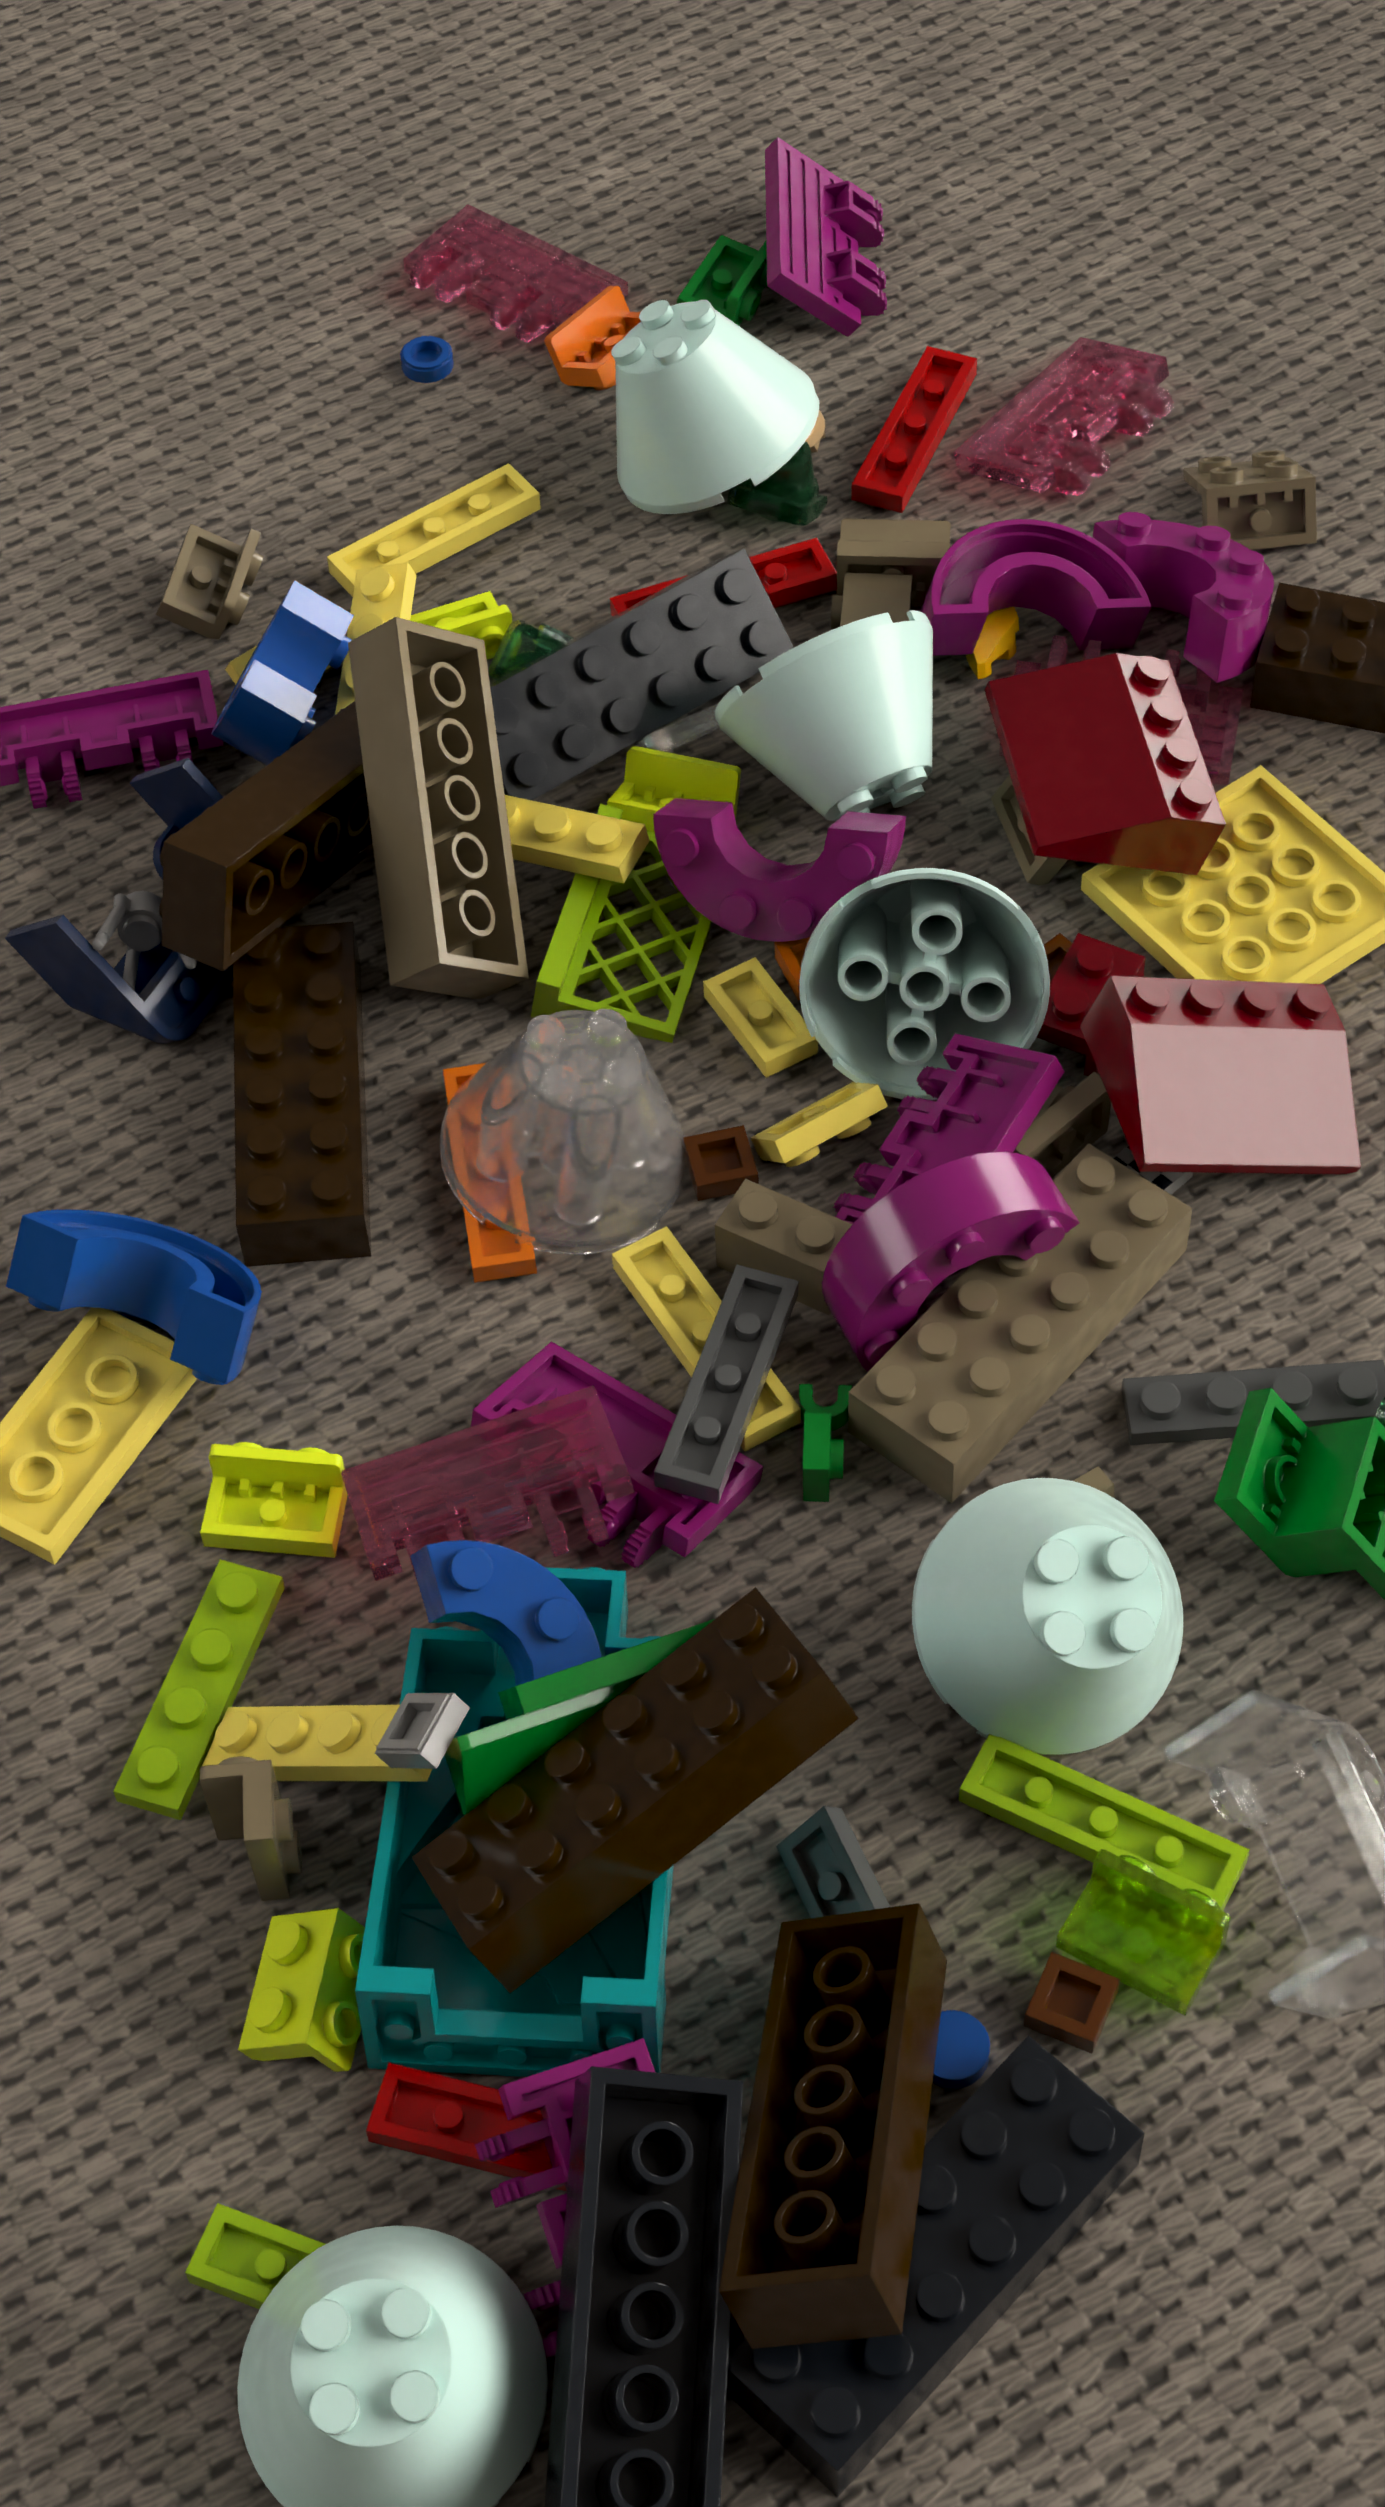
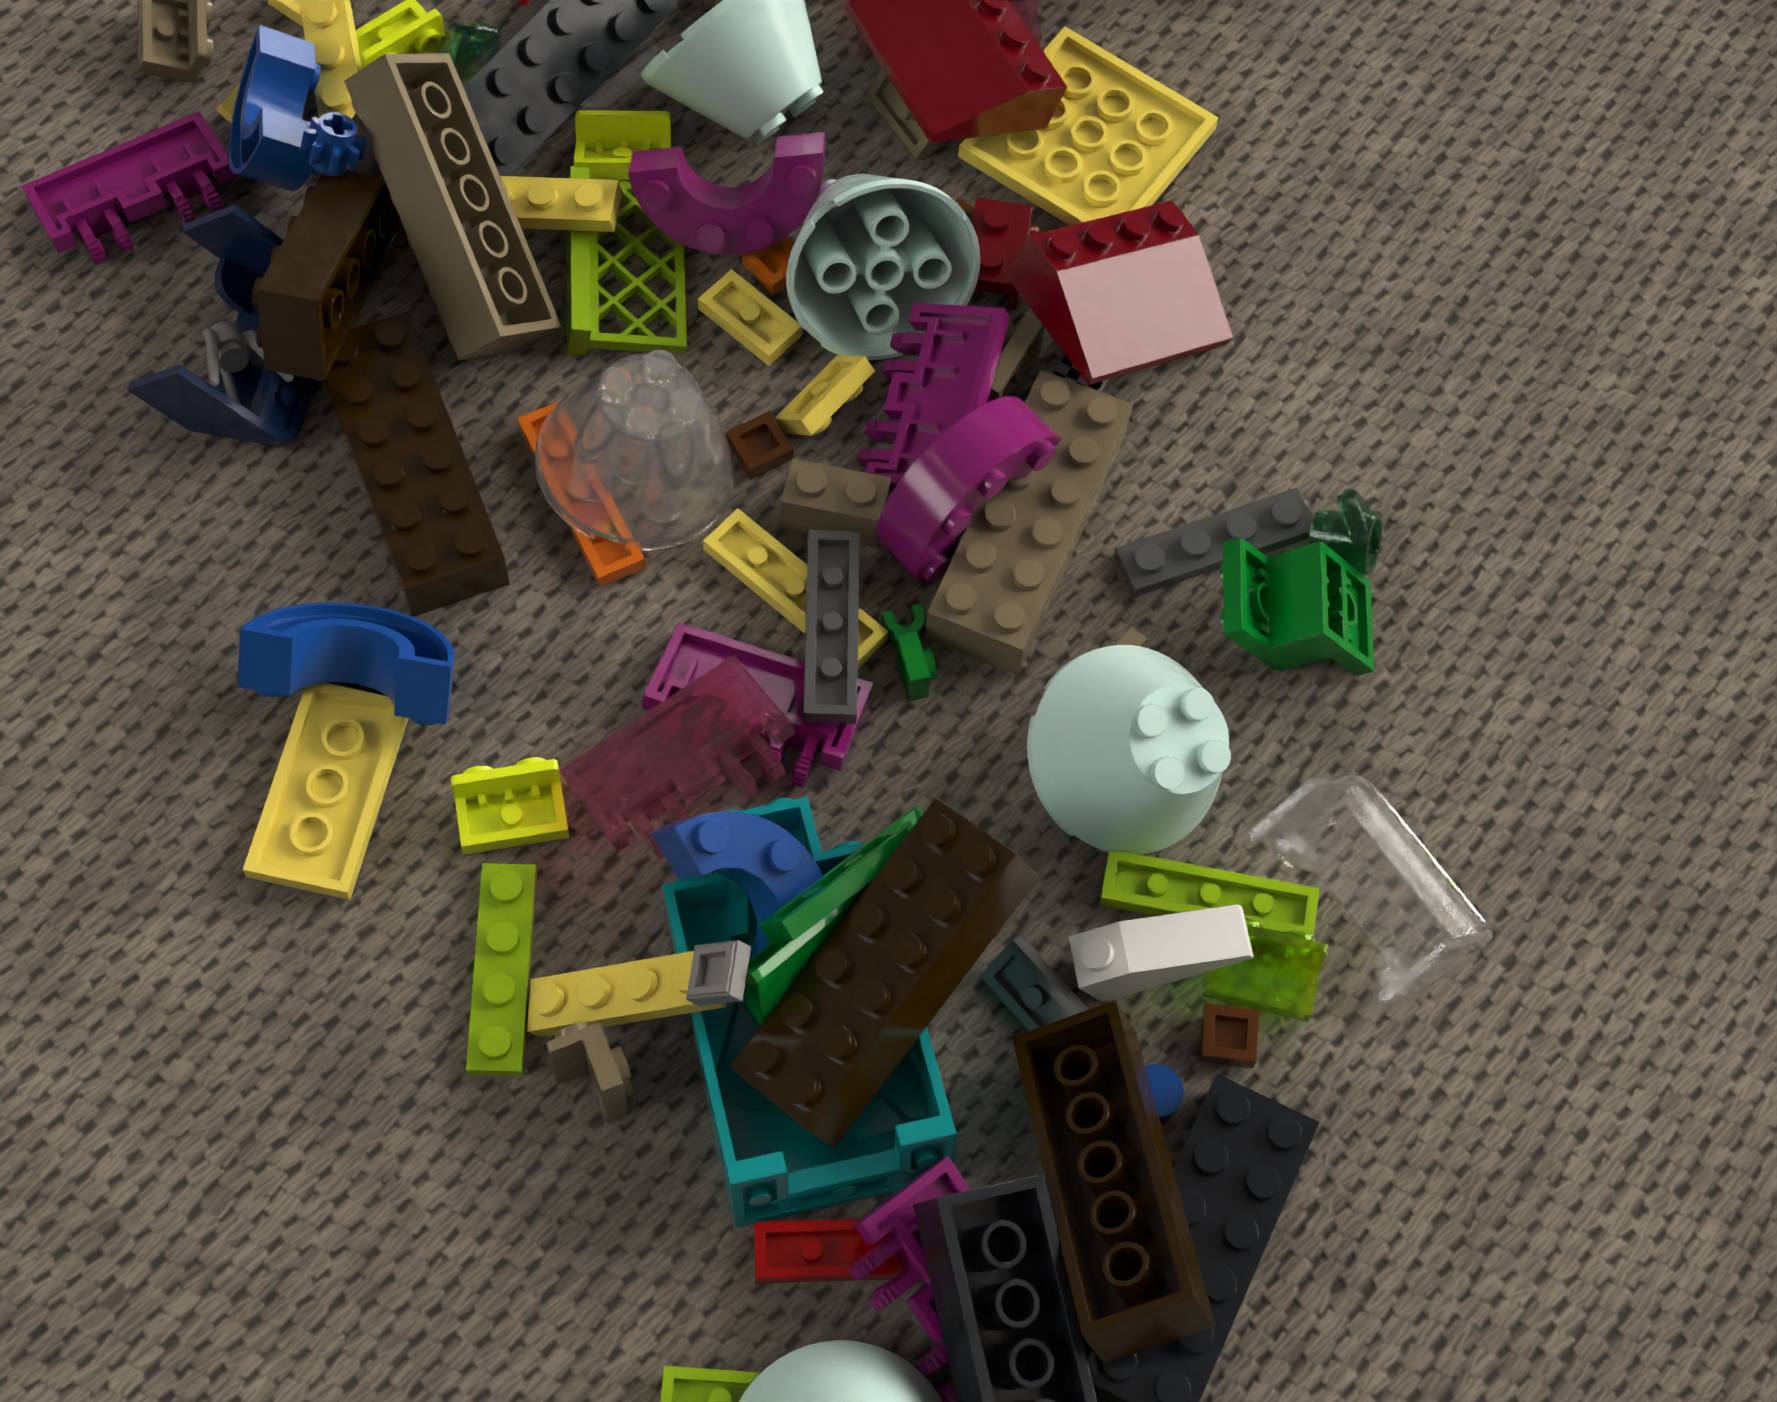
camera: 25 degrees left, 10 degrees up
(306, 1990) = (672, 1181): neon yellow bracket -> none
(316, 711) = (333, 144): none -> blue gear
(1003, 1866) = (1158, 950): none -> white slope

